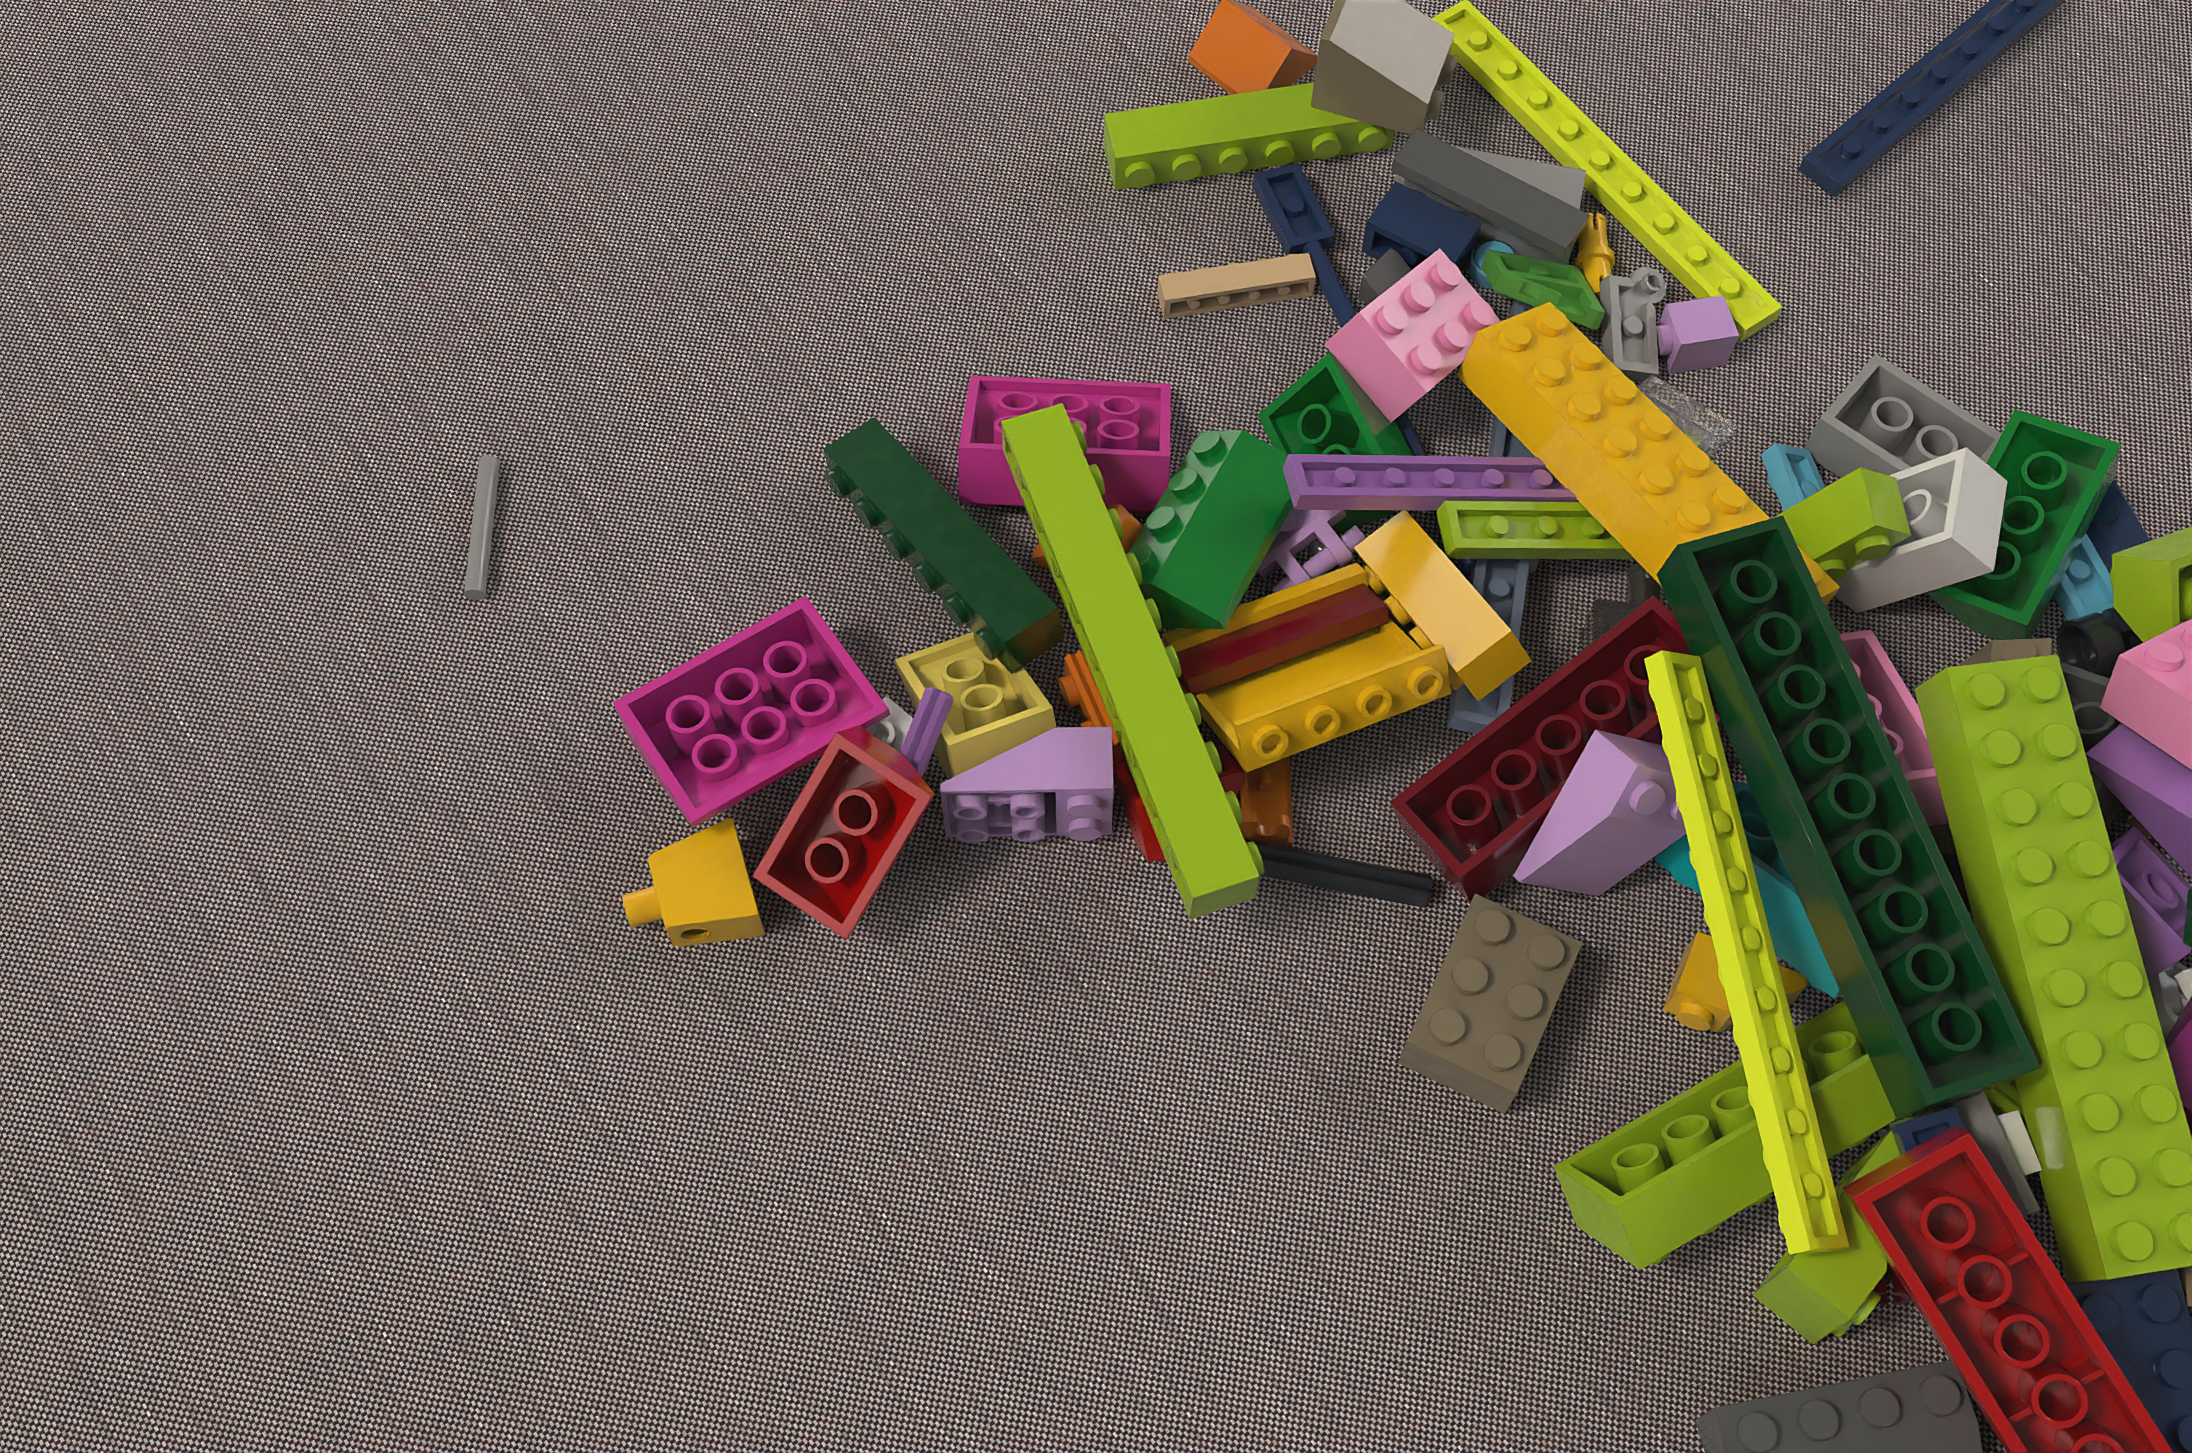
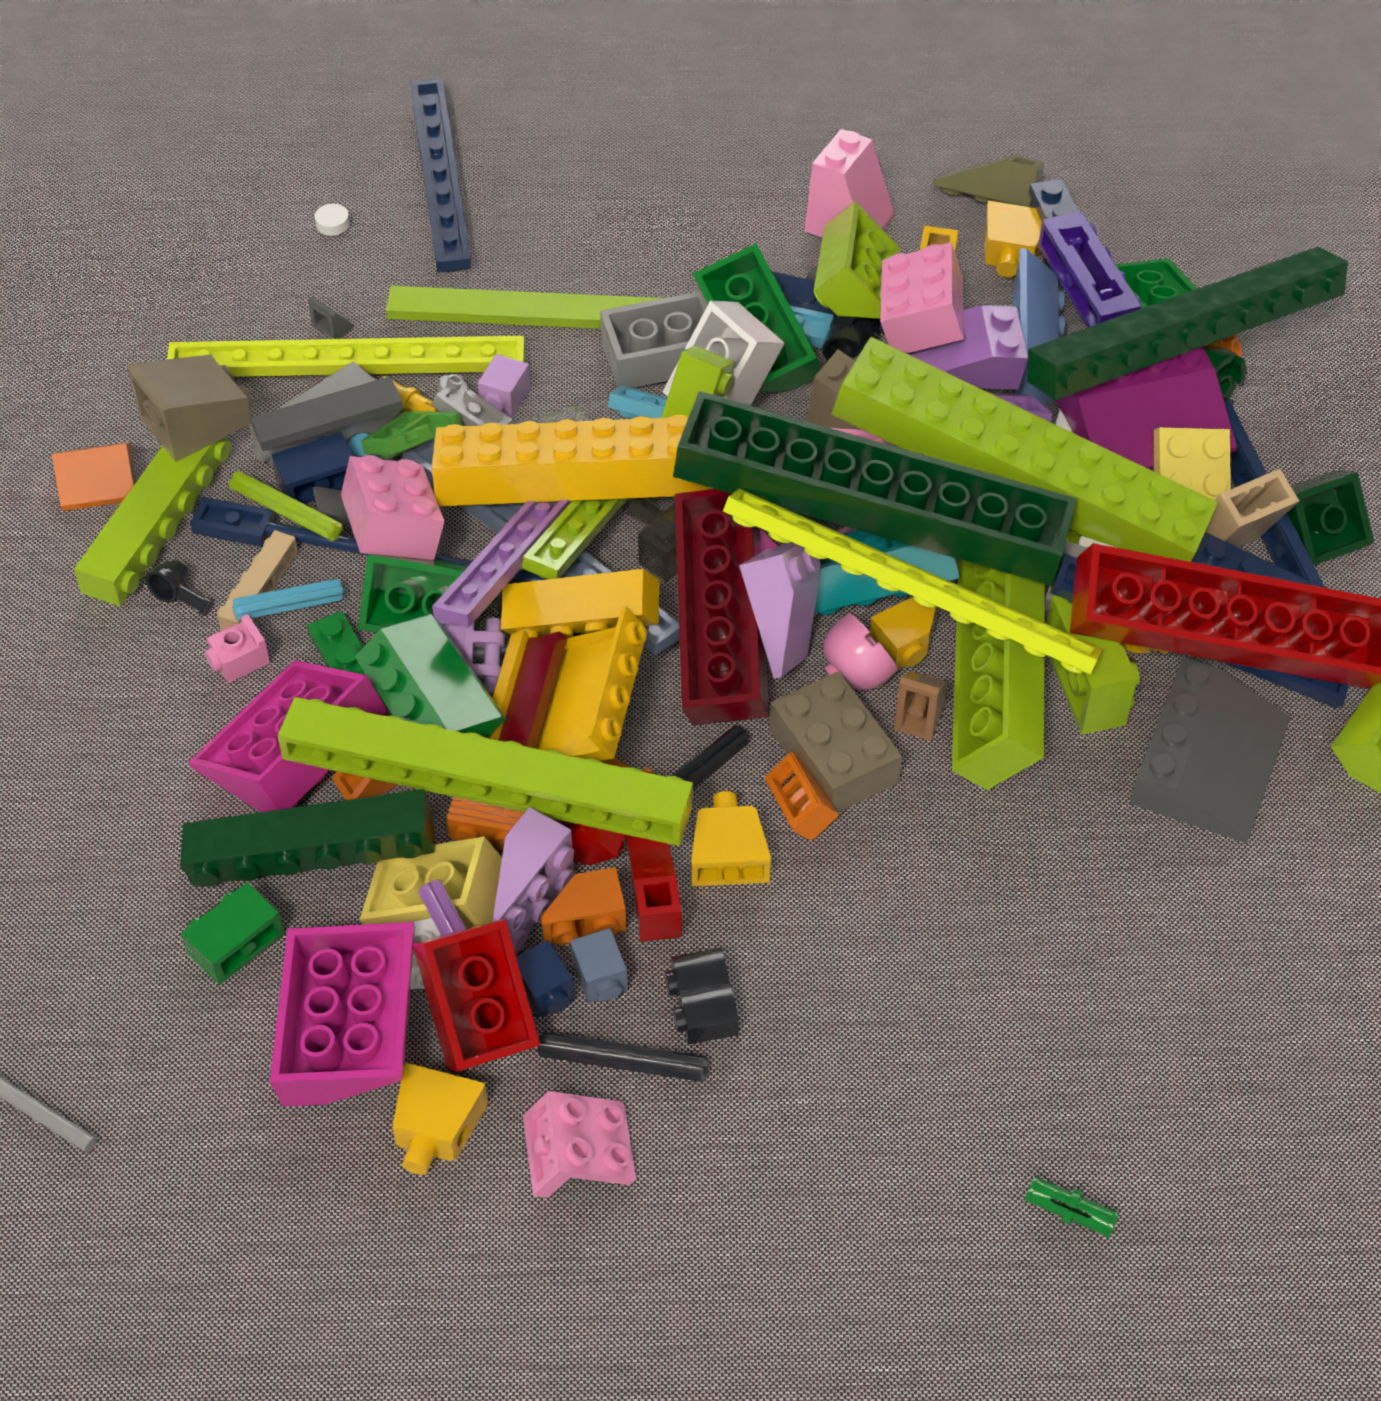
camera: 55 degrees left, 10 degrees down
(767, 1062) = (577, 1140): none -> bright pink bracket
(789, 552) = (232, 933): none -> green brick
(908, 1038) = (623, 1056): none -> black axle
(940, 889) = (545, 980): none -> dark blue brick
(997, 937) = (599, 966): none -> sand blue brick
(1037, 1073) = (703, 996): none -> black brick
(1065, 872) = (585, 906): none -> orange slope
(1130, 933) = (654, 889): none -> red slope
(1134, 323) = (237, 650): none -> bright pink brick
(1170, 208) = (168, 584): none -> black bar
(1220, 406) = (336, 642): none -> green hinge
(1231, 324) = (288, 599): none -> medium azure axle
(1260, 971) = (729, 845): none -> yellow torso
(1348, 242) = (285, 506): none -> lime axle
(1376, 1030) = (816, 812): none -> orange slope
(1626, 1066) = (920, 704): none -> medium nougat slope
(1632, 949) = (857, 655): none -> bright pink cylinder
(1635, 115) = (328, 320): none -> dark grey slope
(1773, 27) = (332, 219): none -> white piece
(1817, 268) = (502, 306): none -> lime tile

